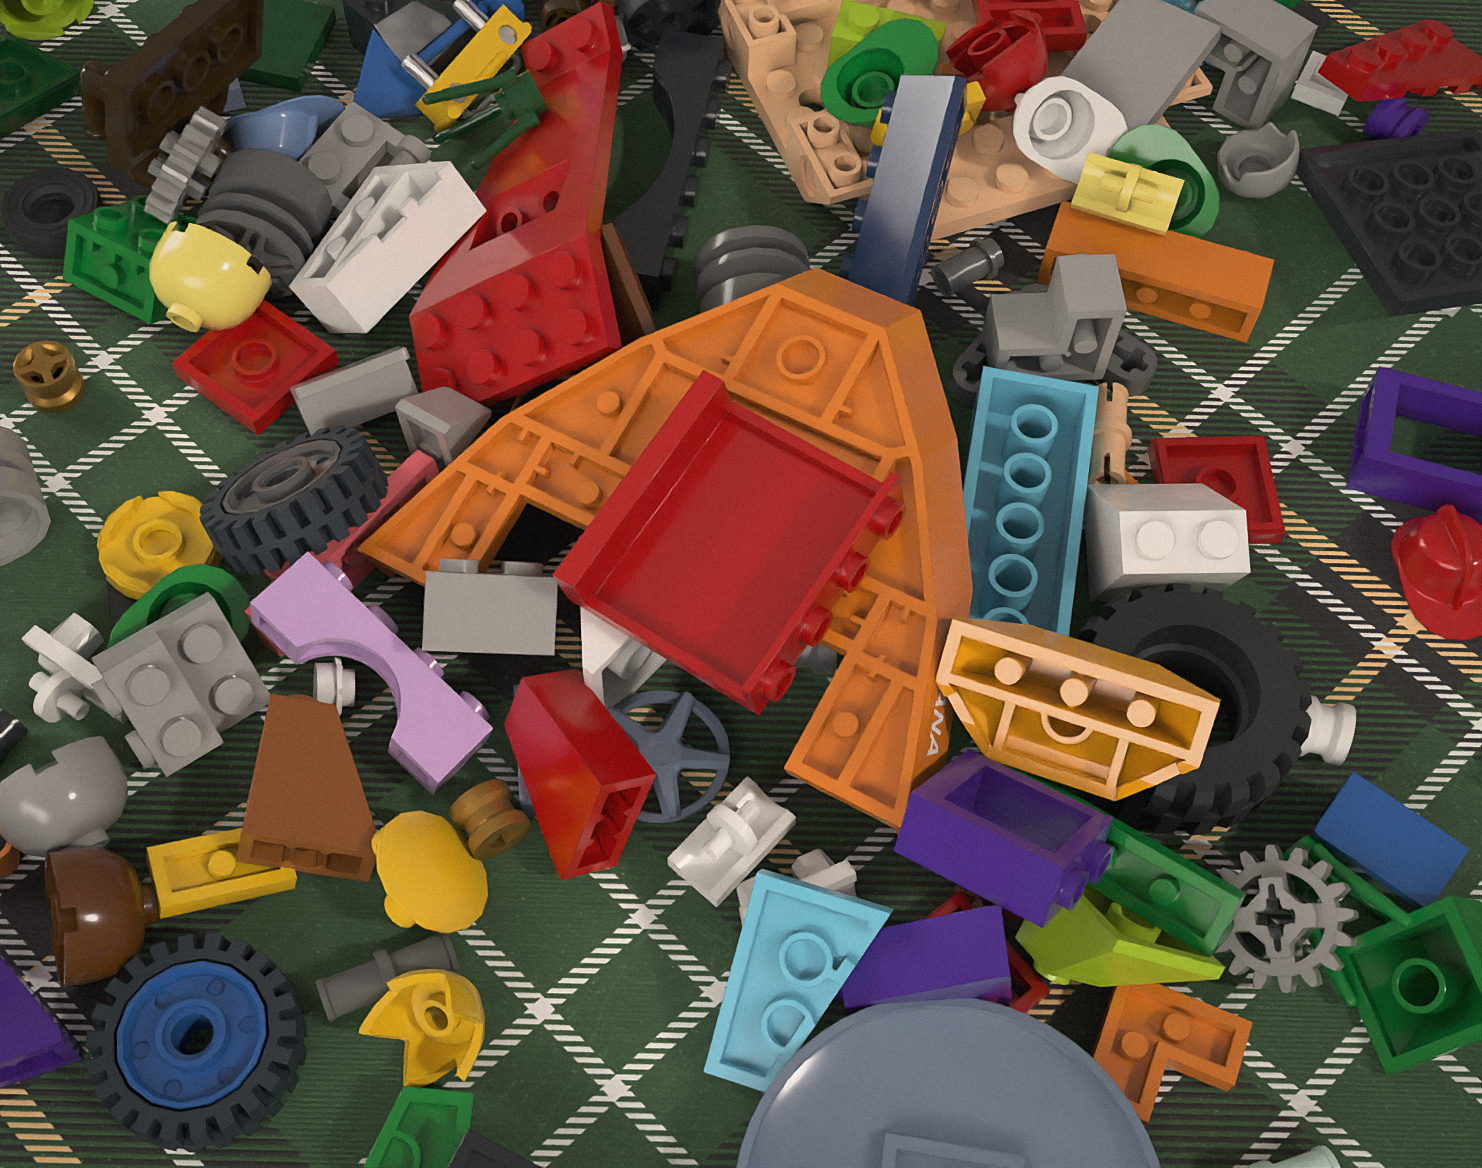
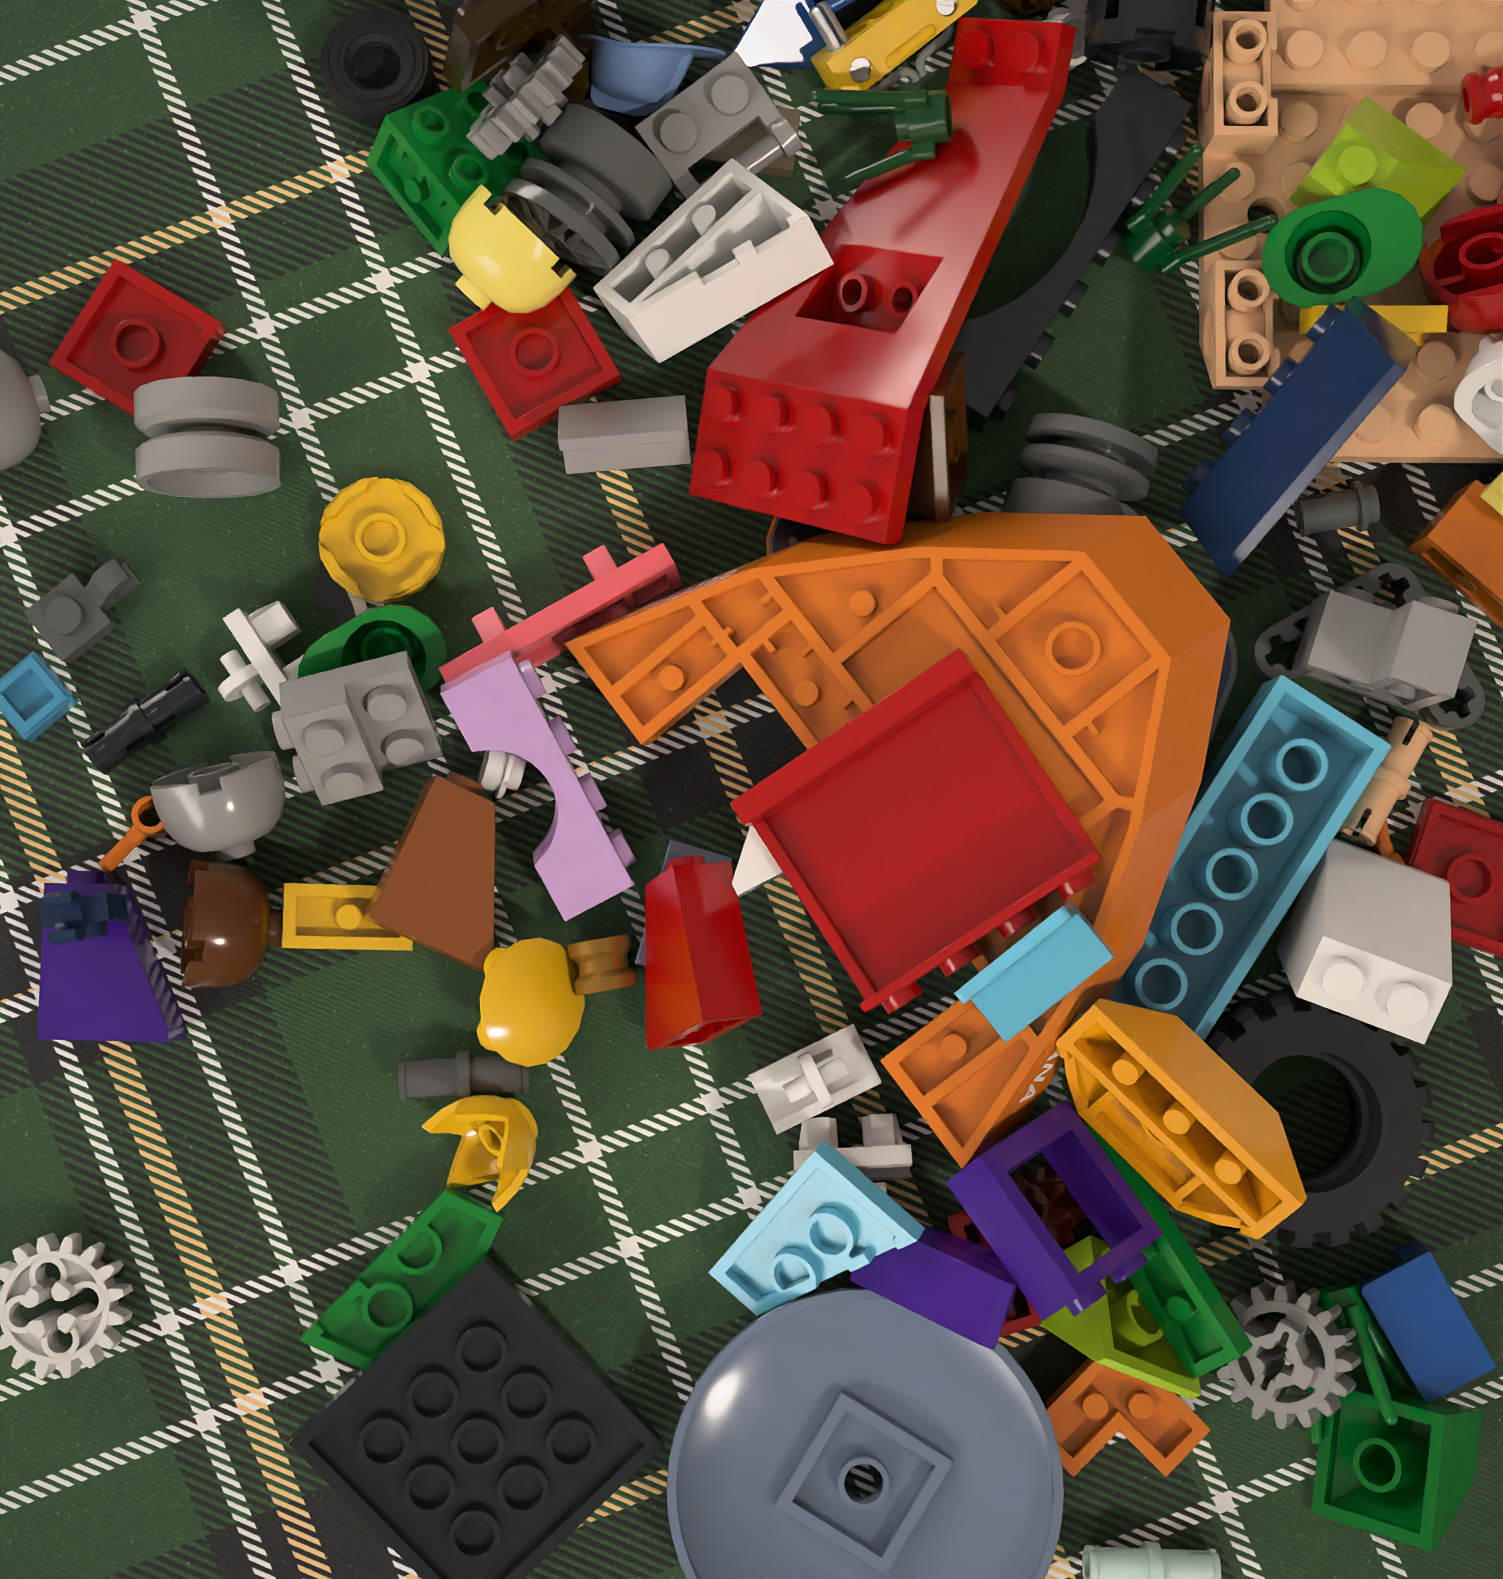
camera: 25 degrees right, 25 degrees up
(36, 371) = (315, 281): pearl gold wheel -> none
(228, 1085) = (235, 1085): wheel -> none
(294, 500) = (521, 564): black wheel -> none
(441, 423) = (700, 527): light grey slope -> none
(489, 610) = (671, 779): light grey brick -> none
(669, 755) = (787, 956): sand blue wheel -> none
(739, 132) = (1158, 237): none -> dark green plant
(885, 610) = (1037, 971): none -> medium azure panel
(1330, 731) = (1440, 1187): white wheel -> none

